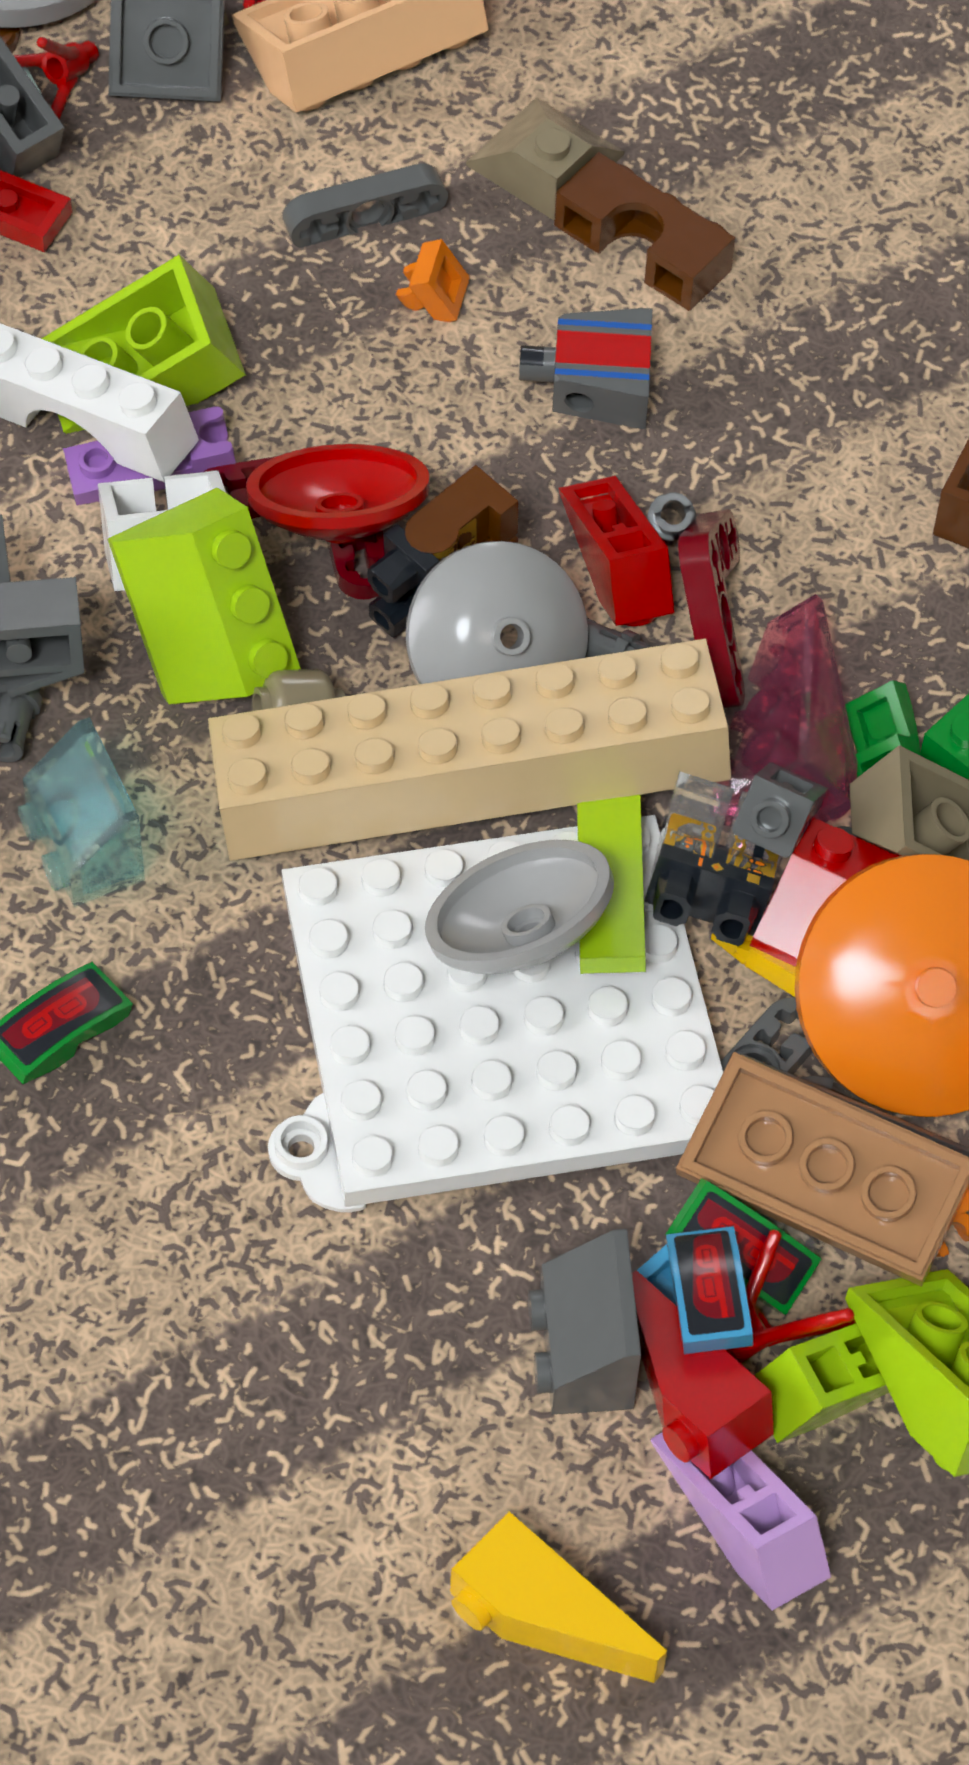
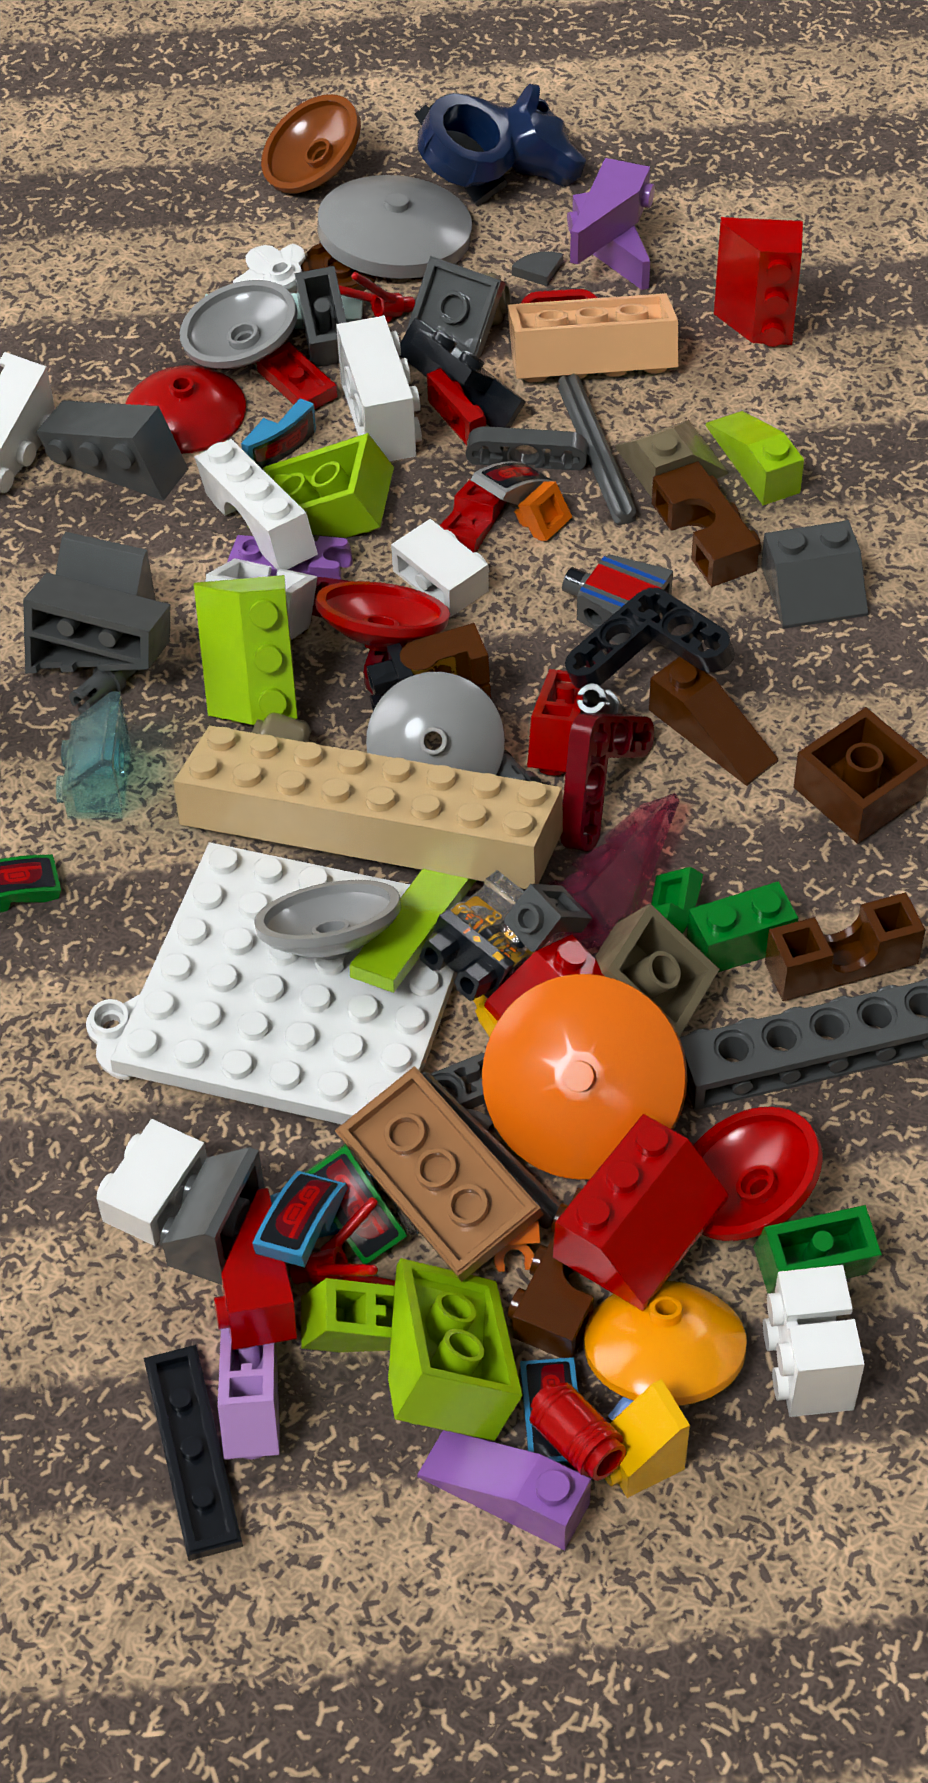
camera: 30 degrees right, 5 degrees down
(36, 301) = (275, 441): none -> slope
(138, 184) = (378, 386): none -> white brick
(219, 132) = (433, 350): none -> black bracket
(241, 177) = (452, 404): none -> red plate
(345, 318) = (473, 515): none -> red slope
(353, 400) = (440, 566): none -> white brick
(380, 255) = (509, 480): none -> slope
(462, 186) = (598, 451): none -> dark grey axle
(482, 1322) = (150, 1181): none -> white brick
(546, 1604) = (71, 1384): yellow slope -> none
(655, 114) = (760, 455): none -> lime slope
(674, 393) = (598, 660): none -> black beam
(721, 1619) = (192, 1453): none -> black tile
(794, 484) = (709, 719): none -> reddish brown slope
(812, 253) = (814, 574): none -> dark grey slope

